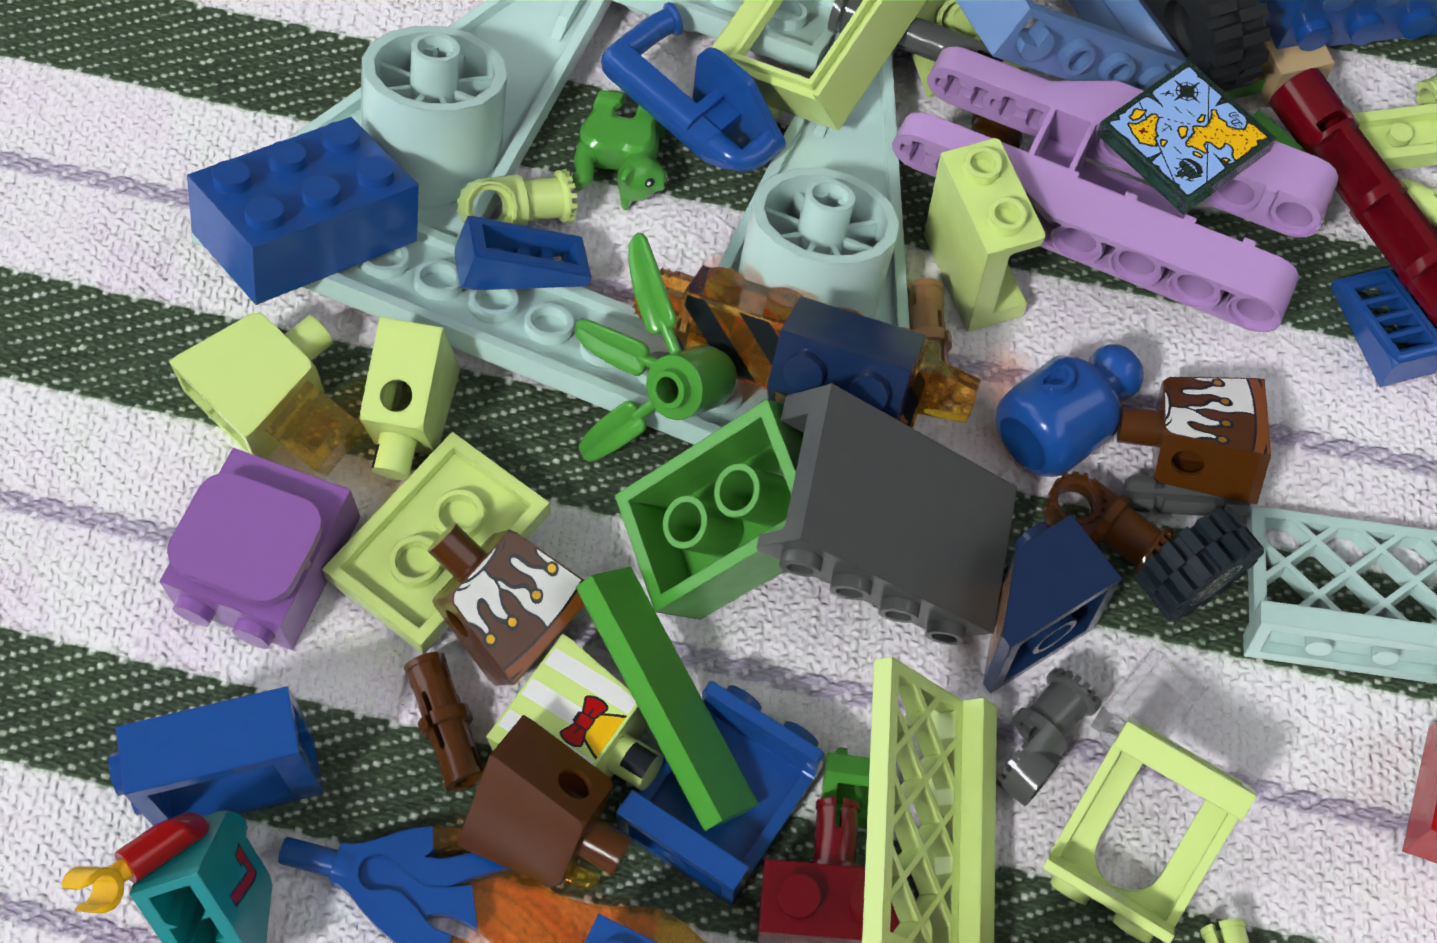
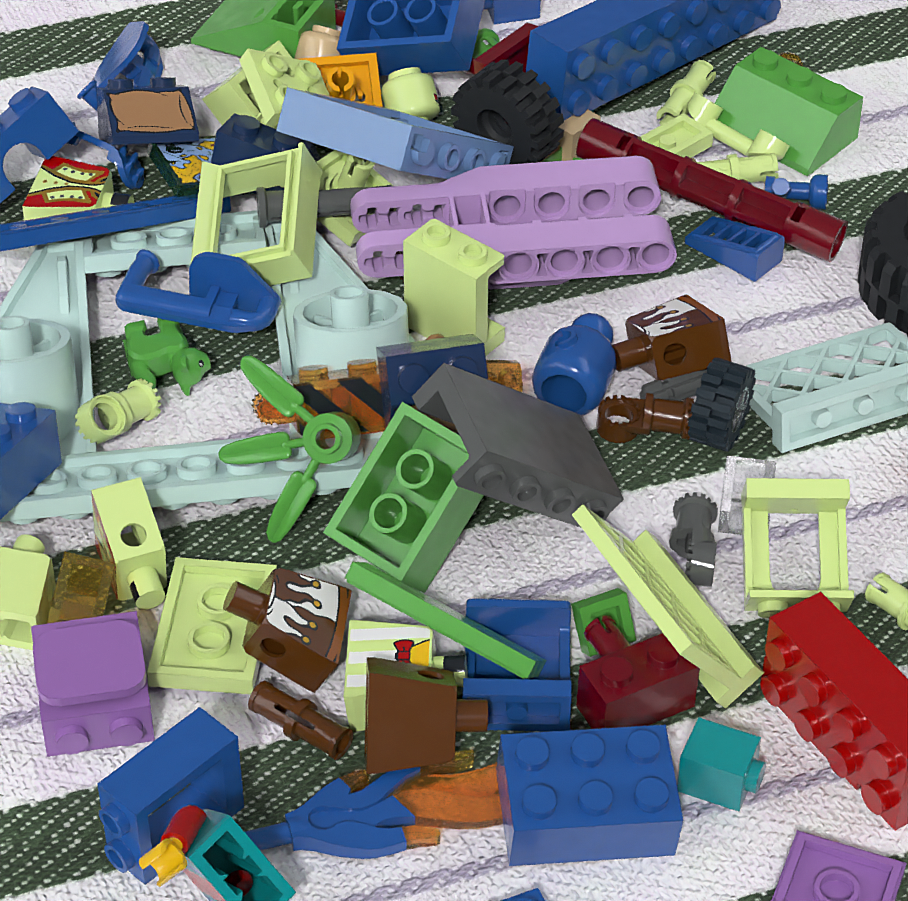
camera: 30 degrees left, 20 degrees down
(518, 257) = (136, 440): blue slope -> none
(1048, 598) = (645, 459): dark blue slope -> none
(1185, 136) = (547, 175): tile -> none

